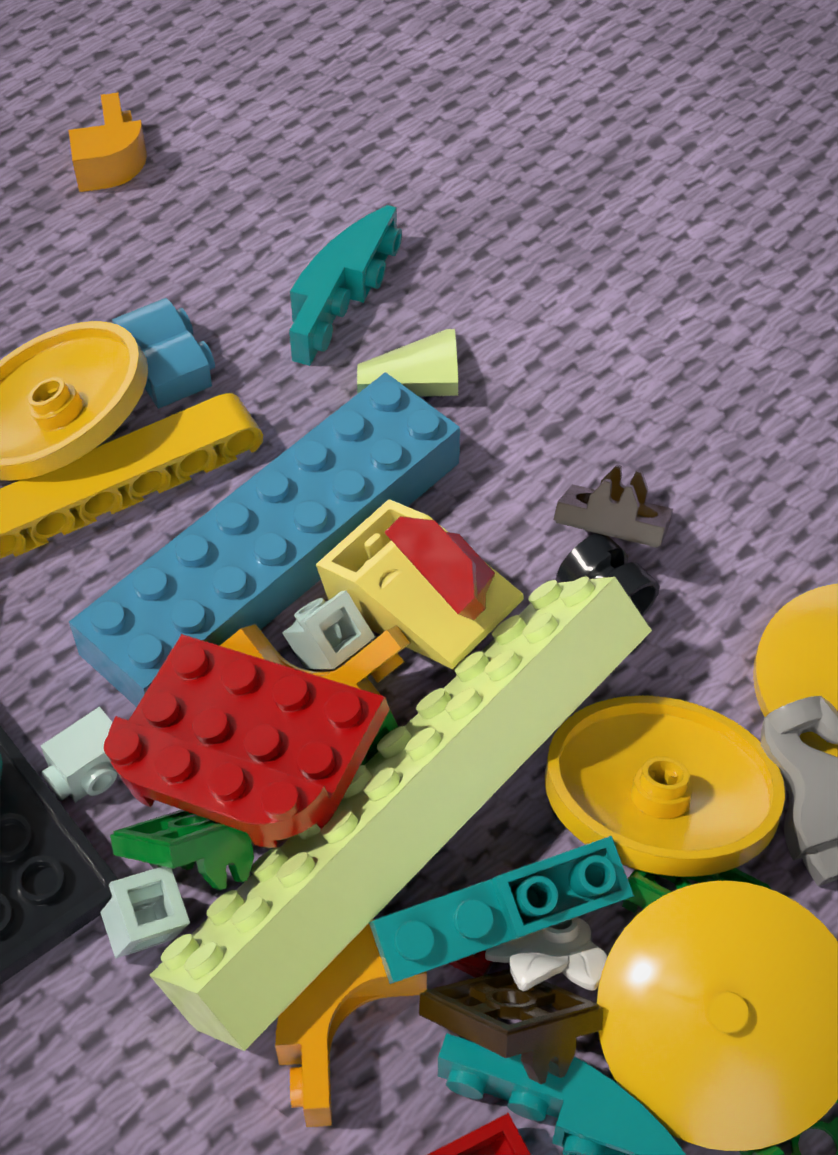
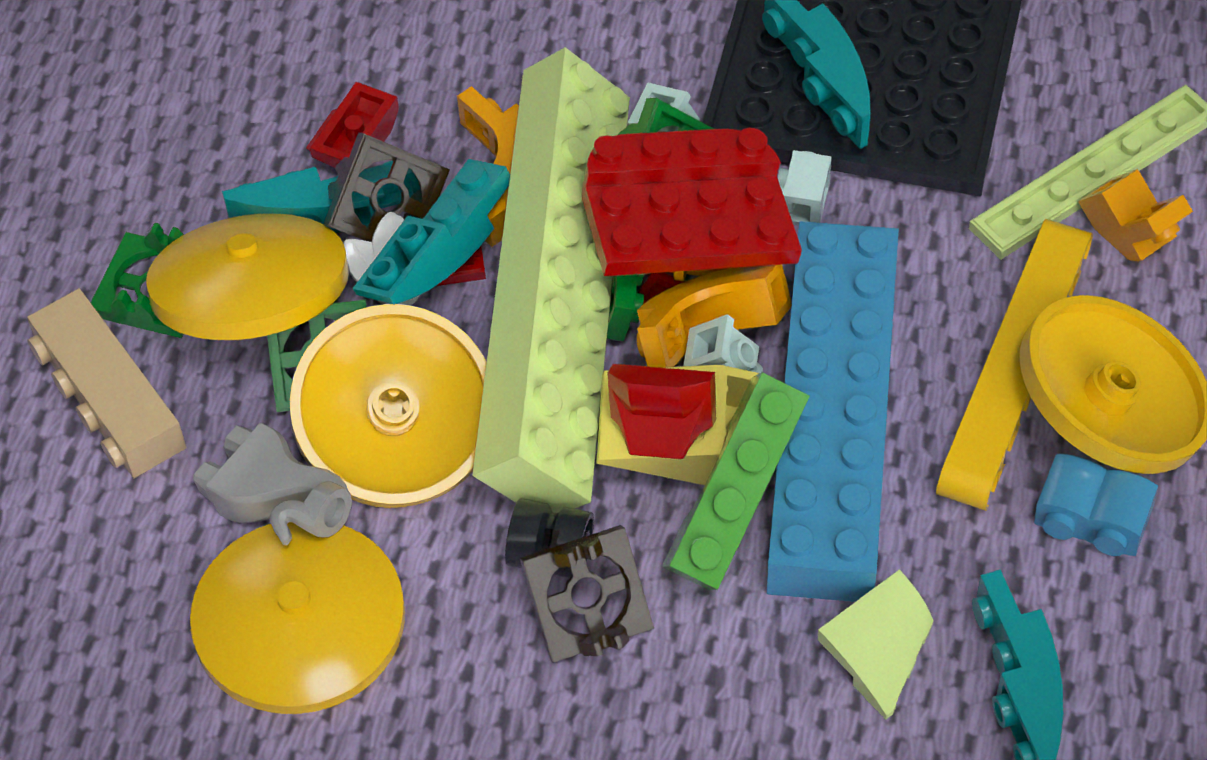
camera: 145 degrees right, 0 degrees up
(375, 487) = (736, 482): none -> bright green arch

